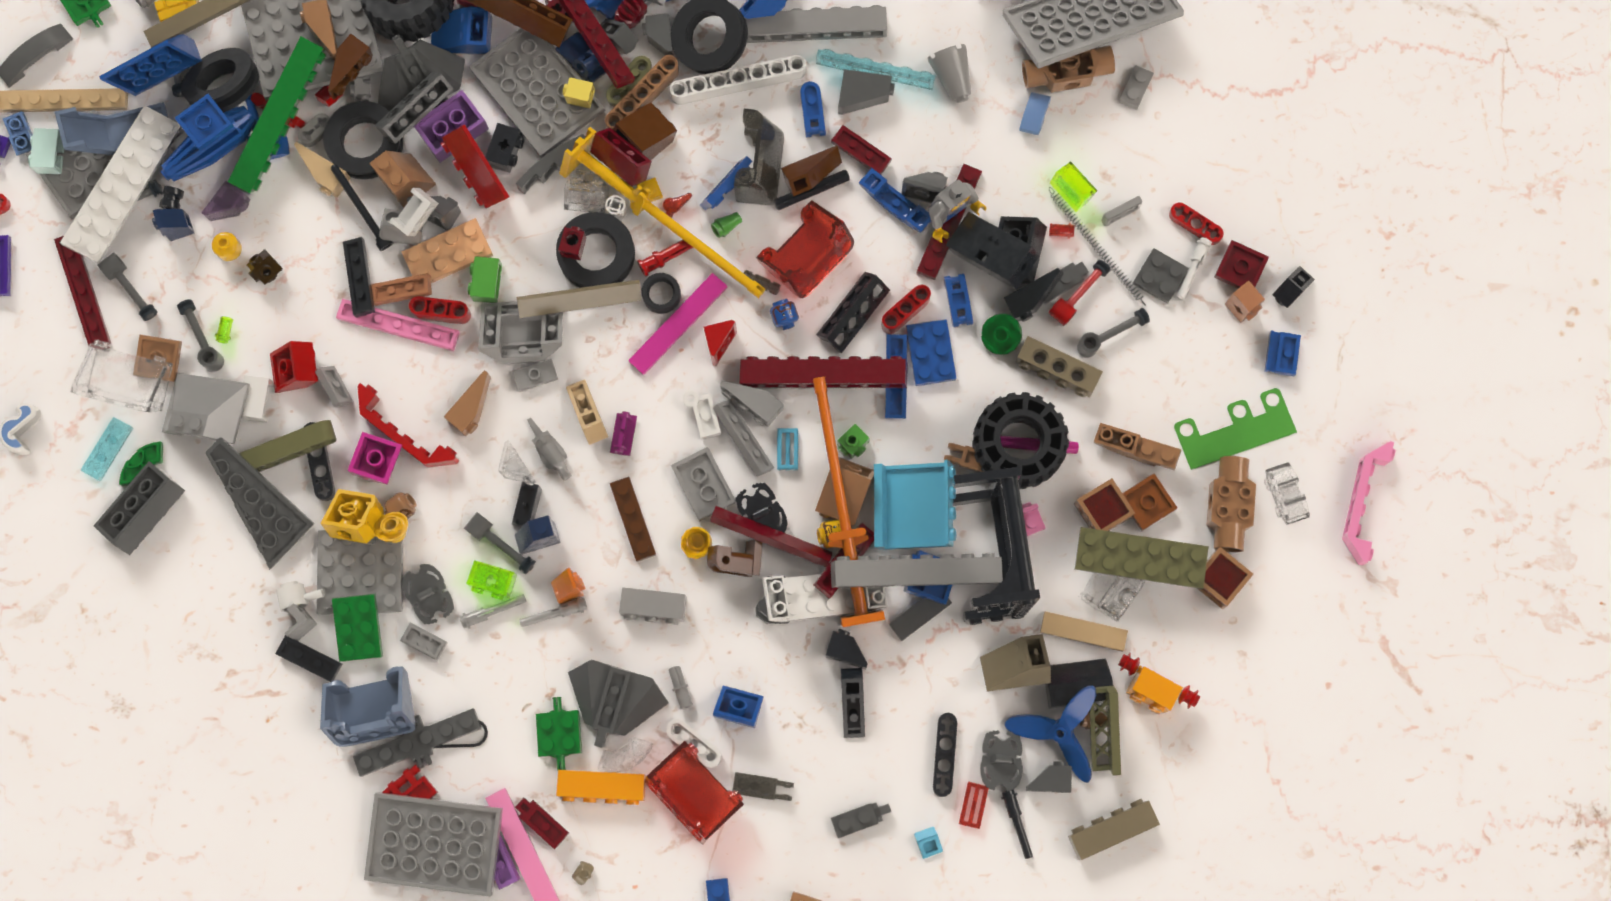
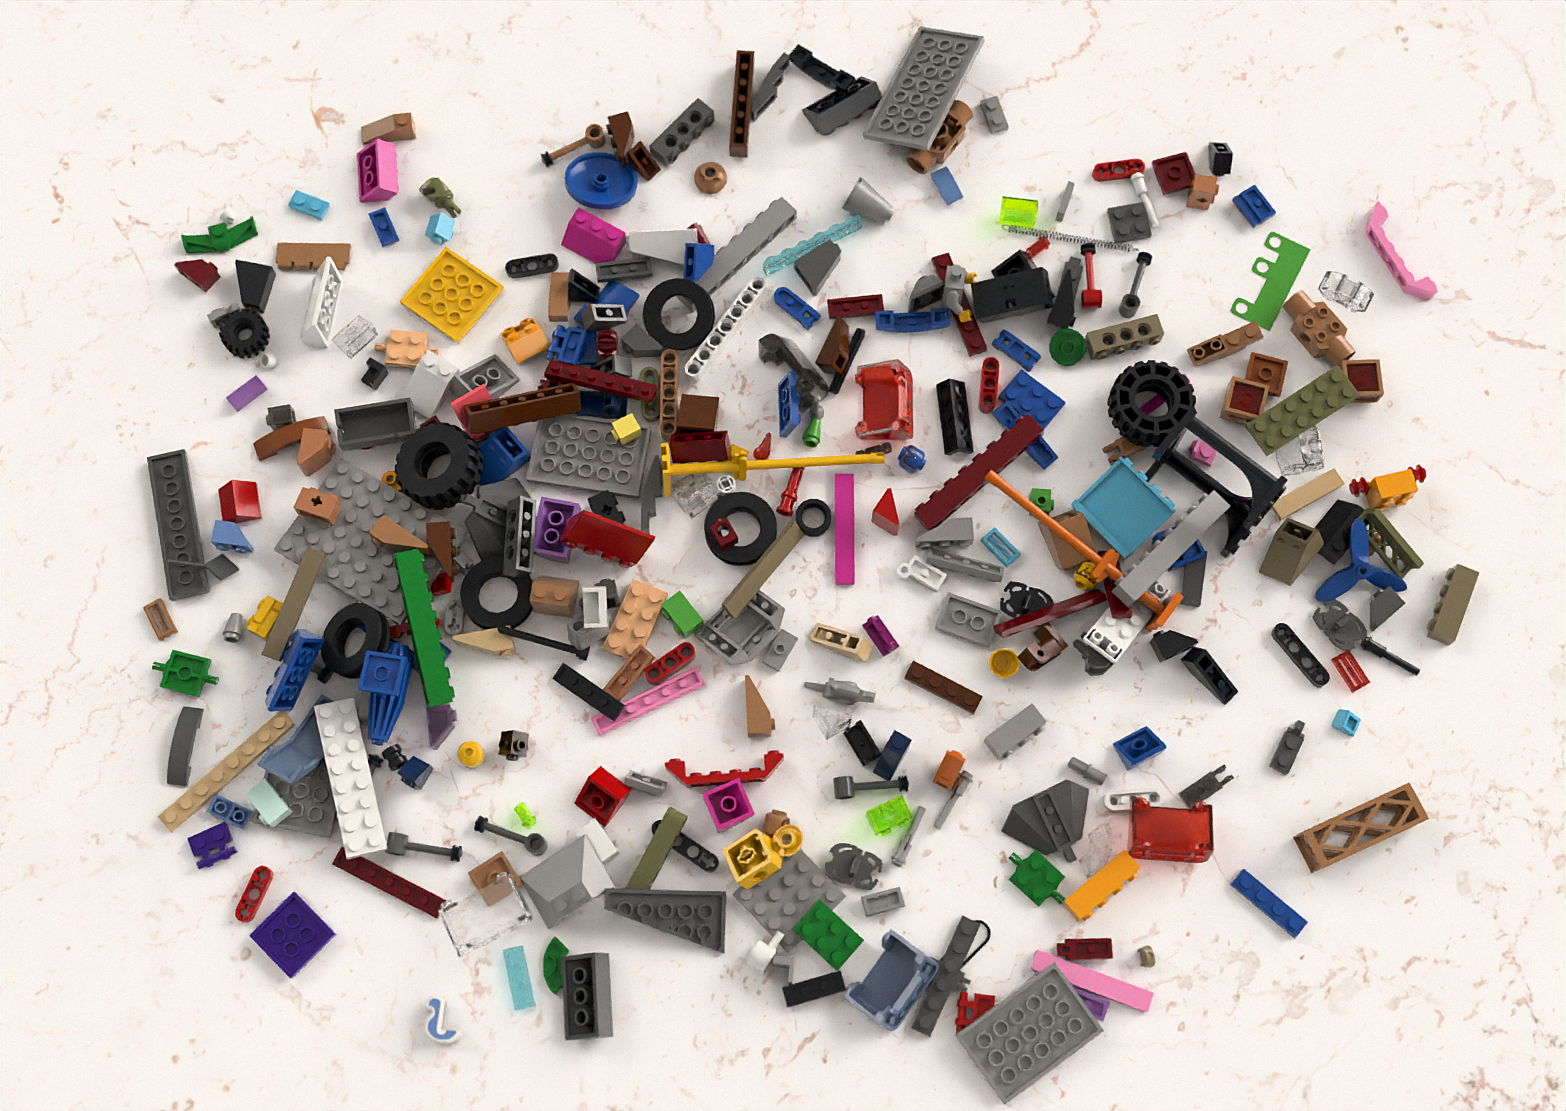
camera: 45 degrees left, 5 degrees down
(747, 212) = (816, 409): none -> light grey hinge

